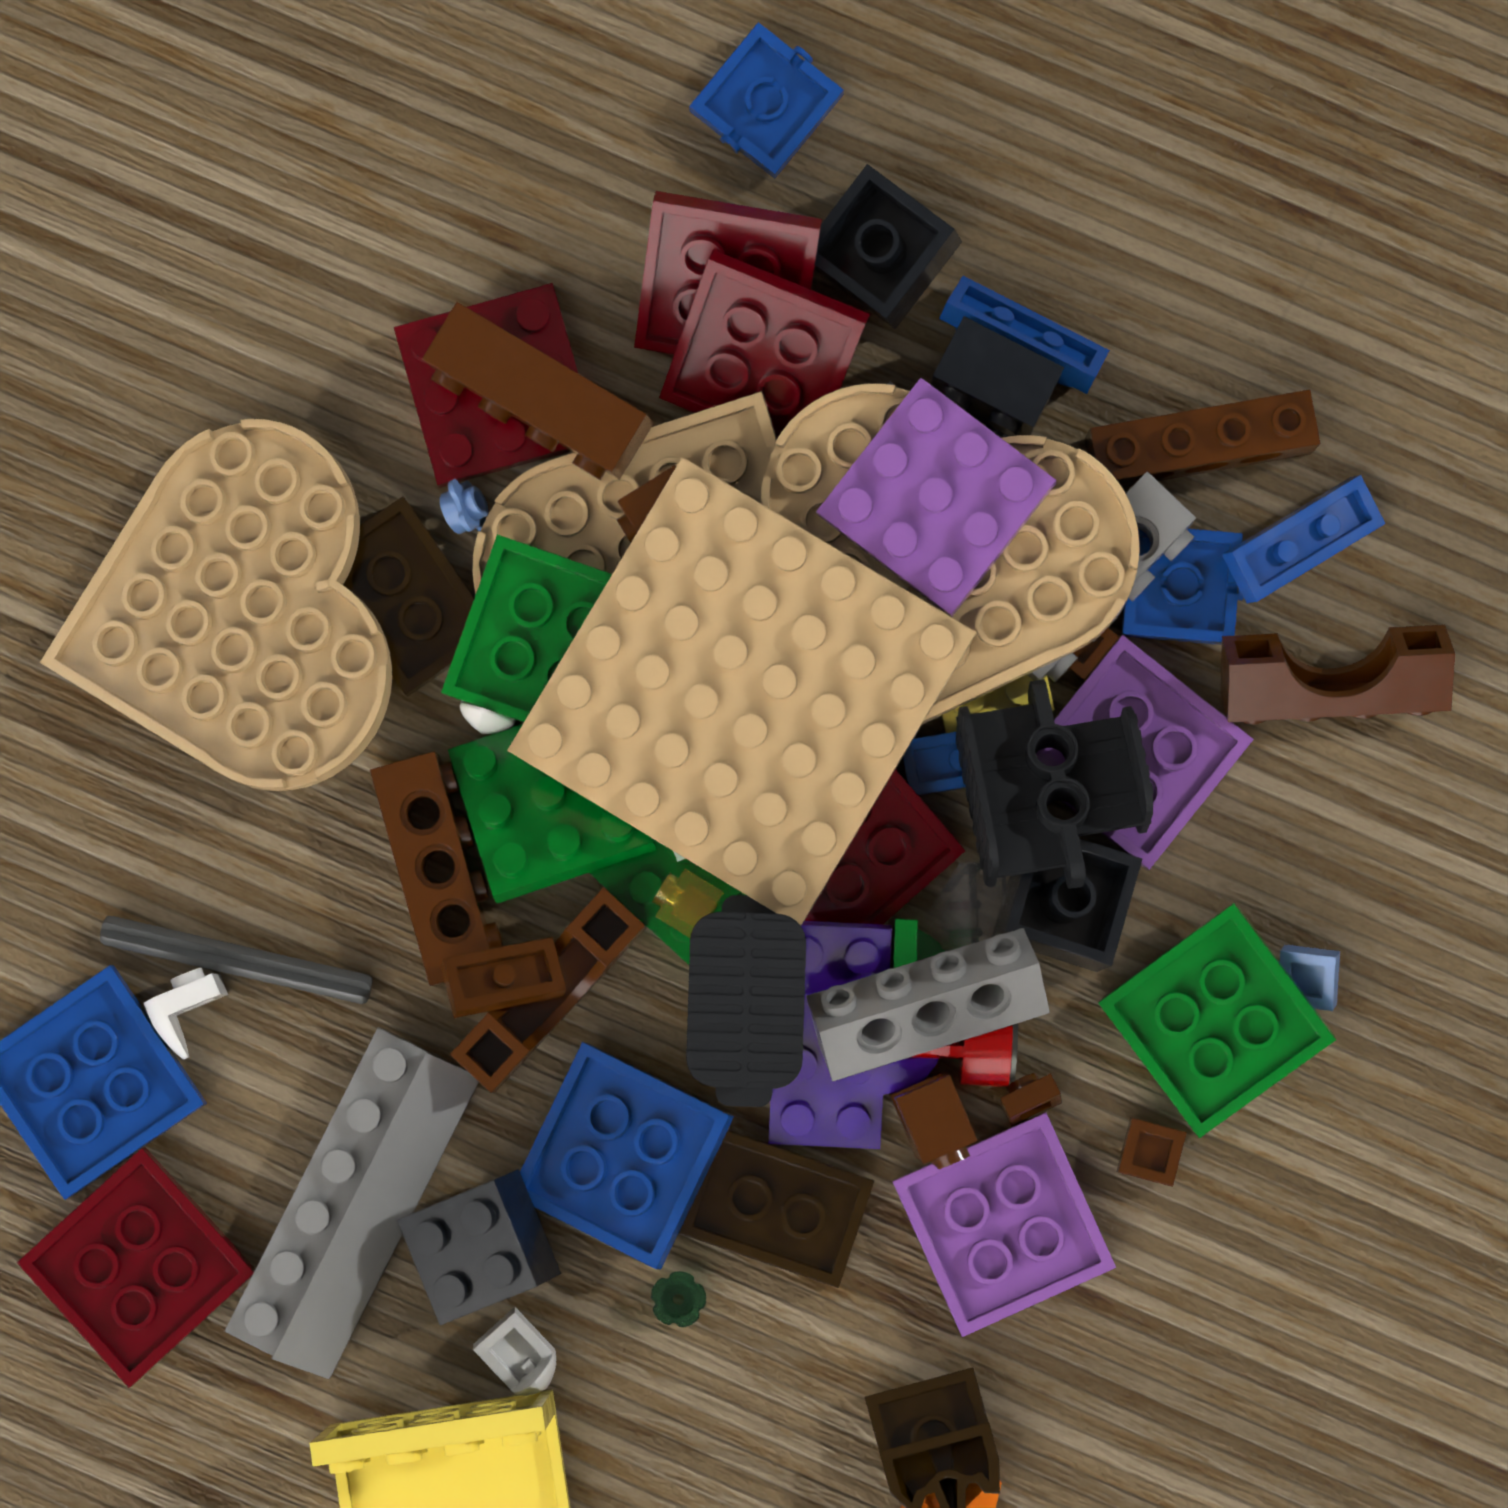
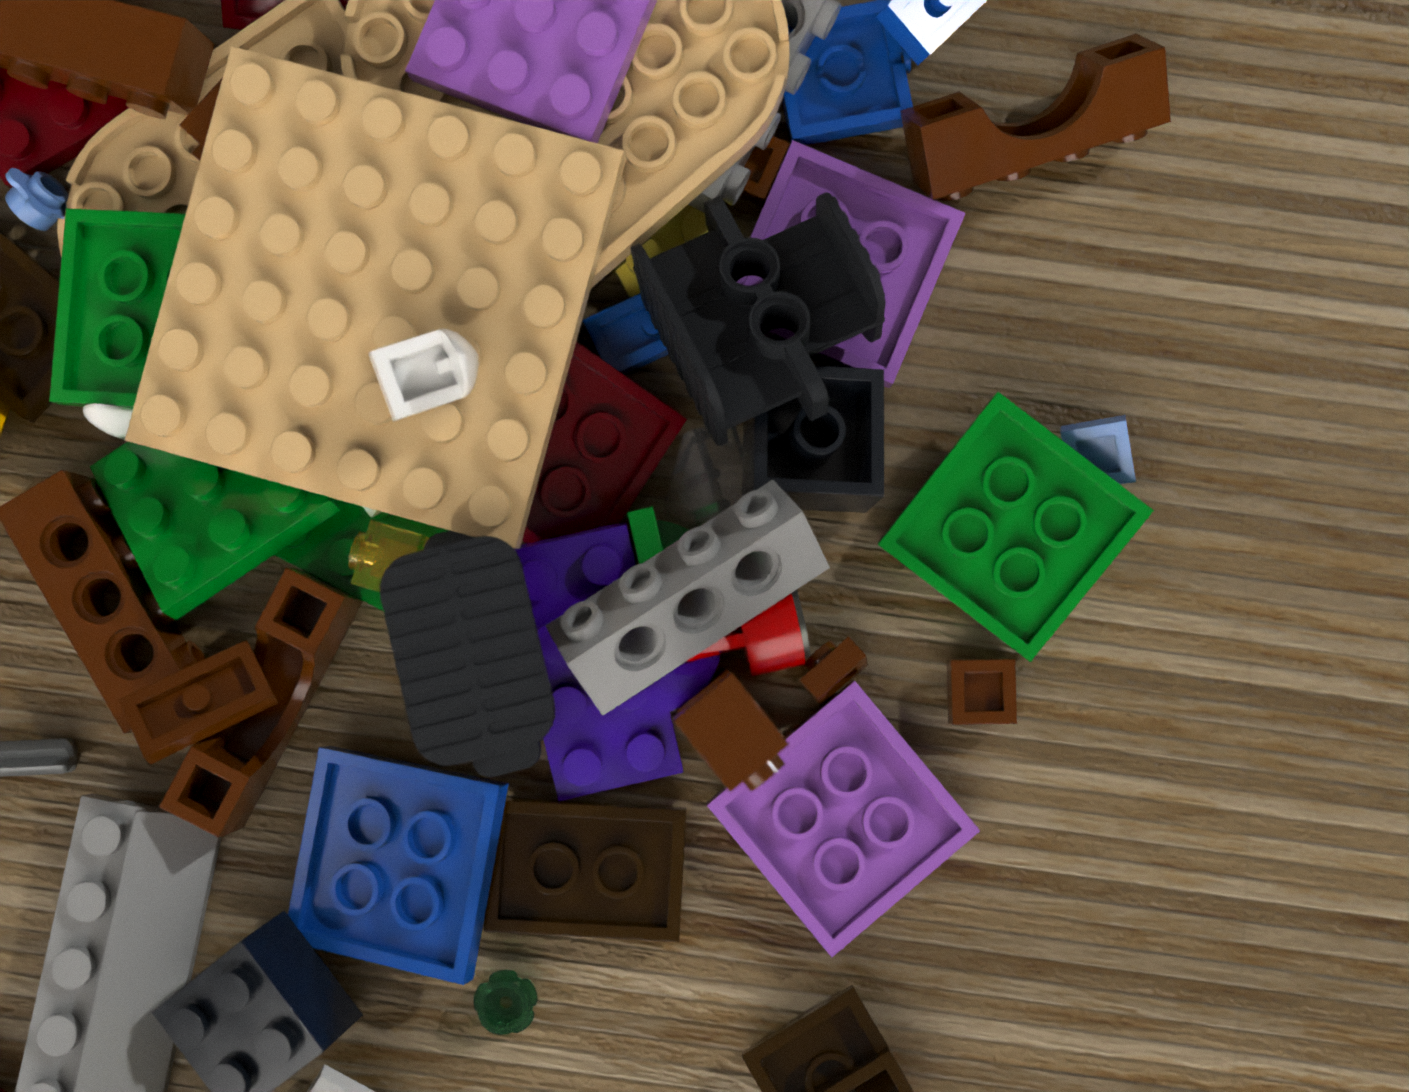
camera: 25 degrees left, 0 degrees up
(771, 771) = (425, 372): none -> white plate

